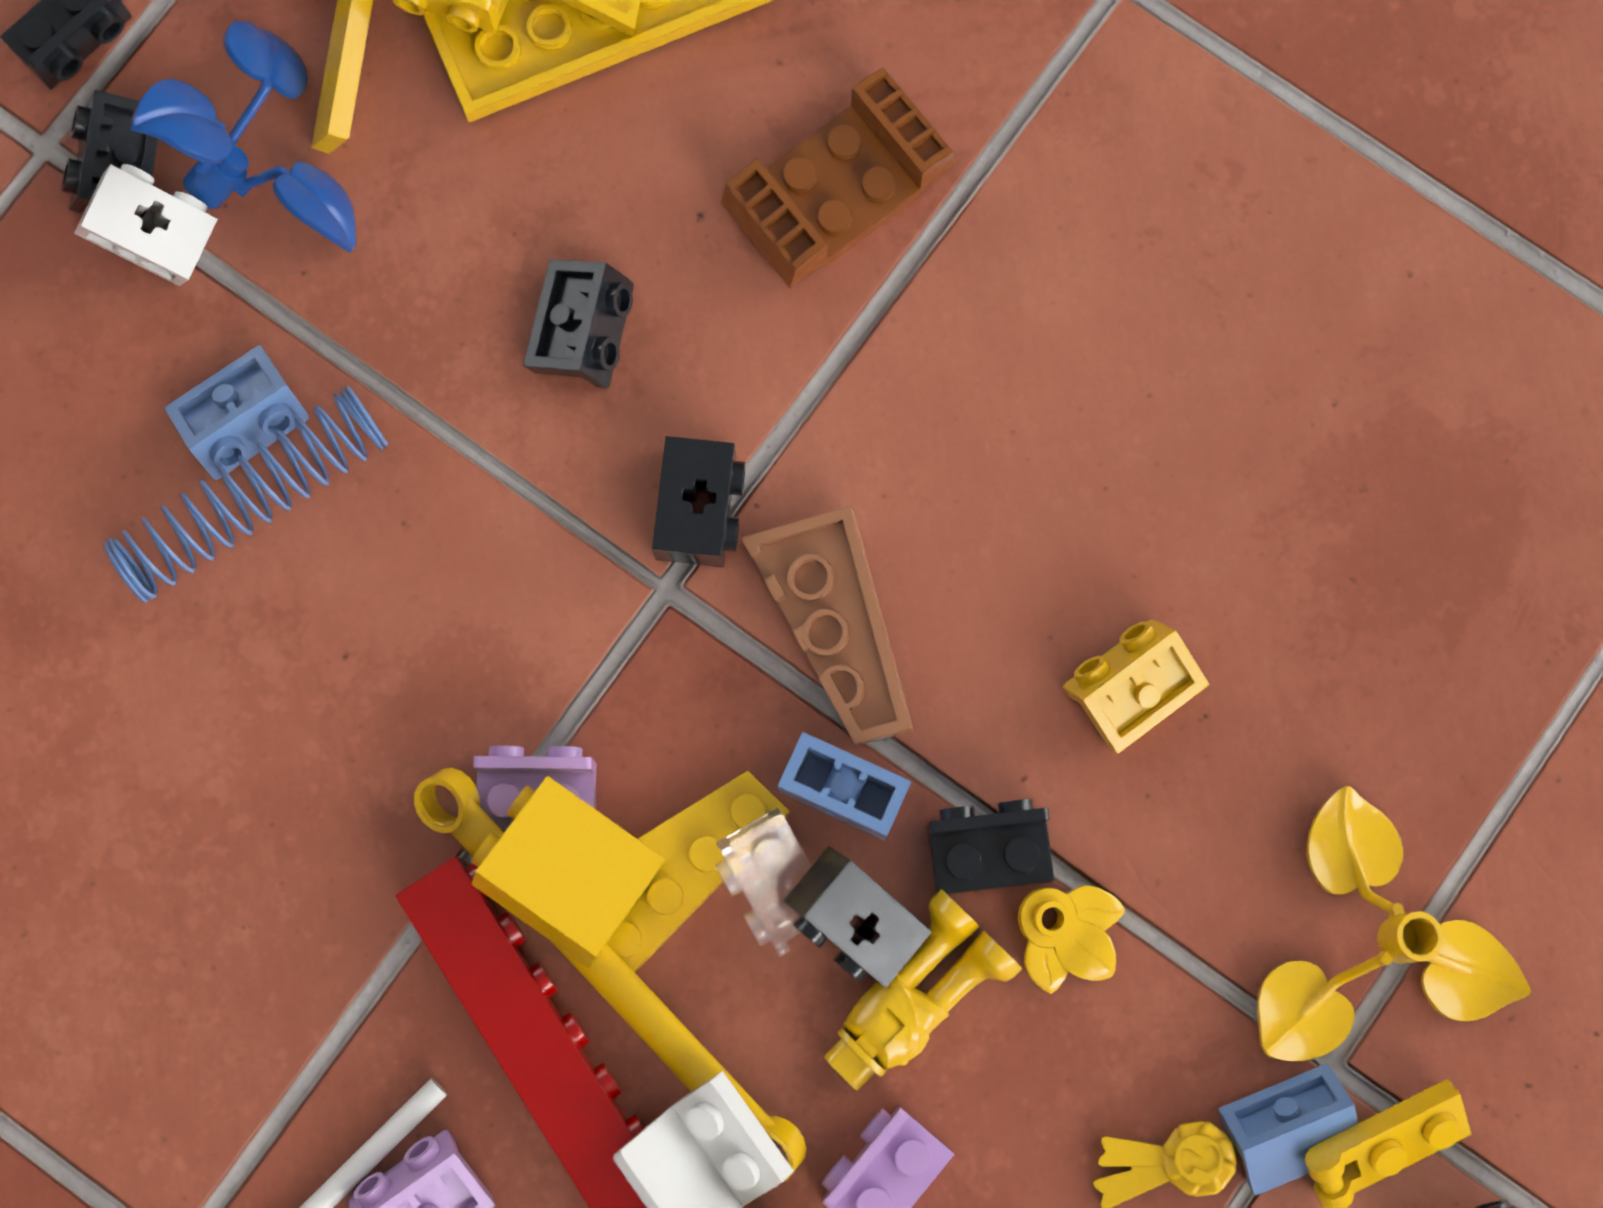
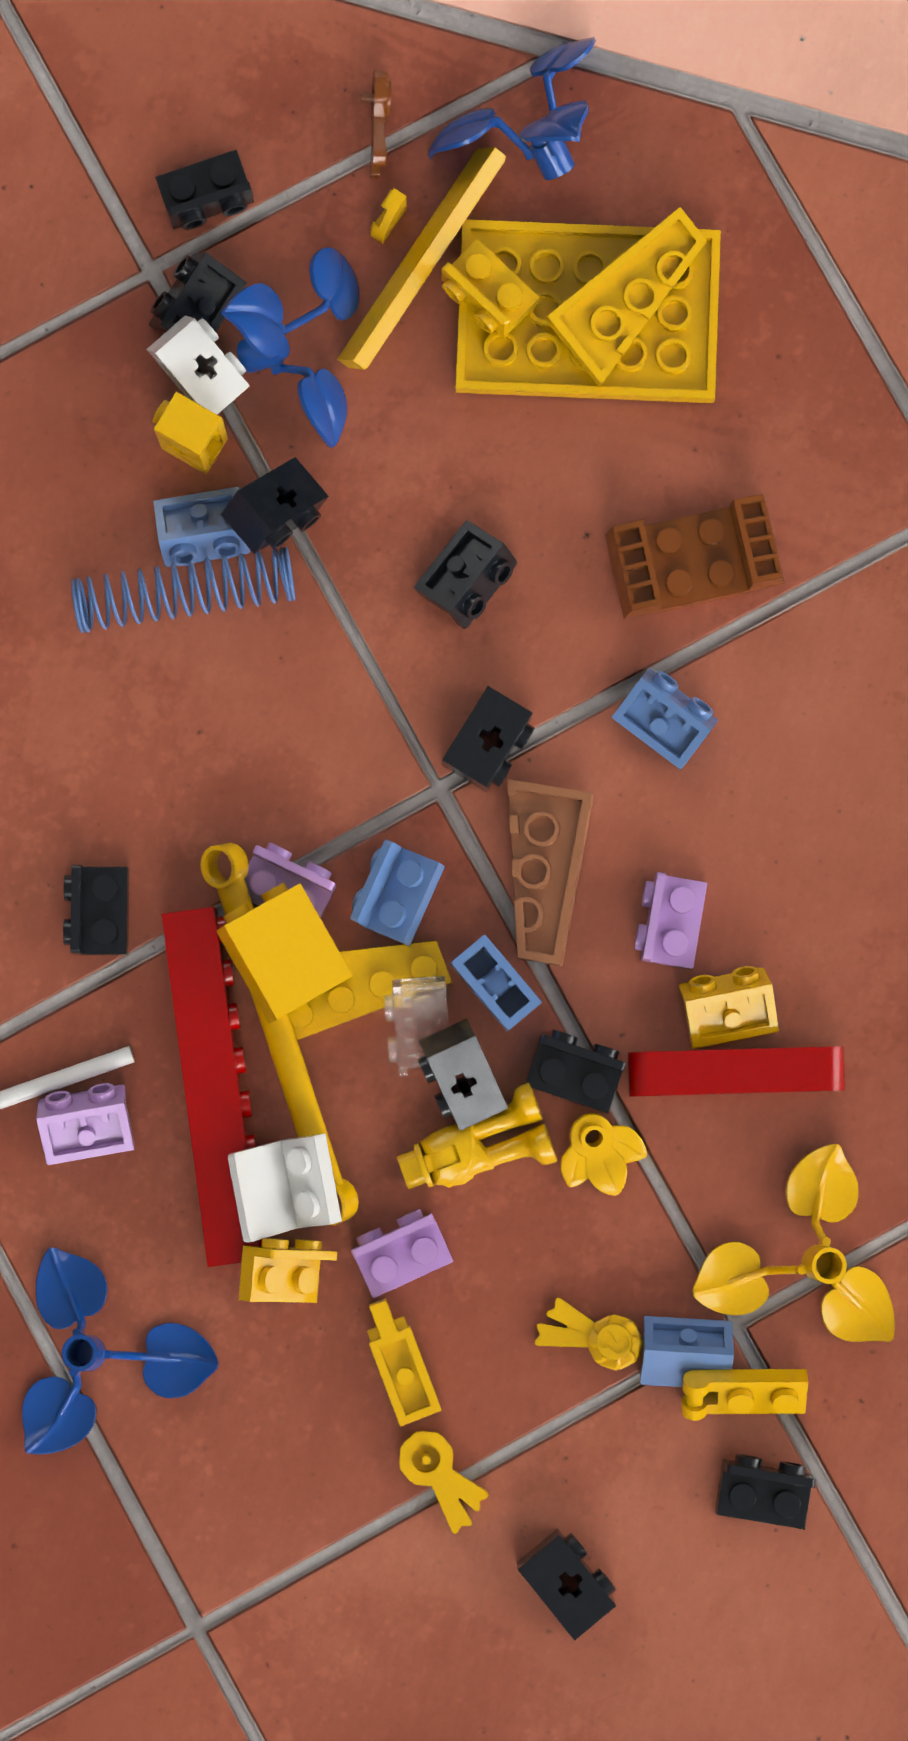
camera: 20 degrees right, 5 degrees up
(169, 303) = (190, 432): none -> yellow brick
(311, 343) = (275, 506): none -> black brick
(316, 930) = (97, 910): none -> black bracket
(671, 735) = (396, 892): none -> medium blue bracket
(894, 379) = (666, 717): none -> medium blue bracket
(1017, 613) = (672, 921): none -> lavender bracket
(1182, 756) = (736, 1071): none -> red beam

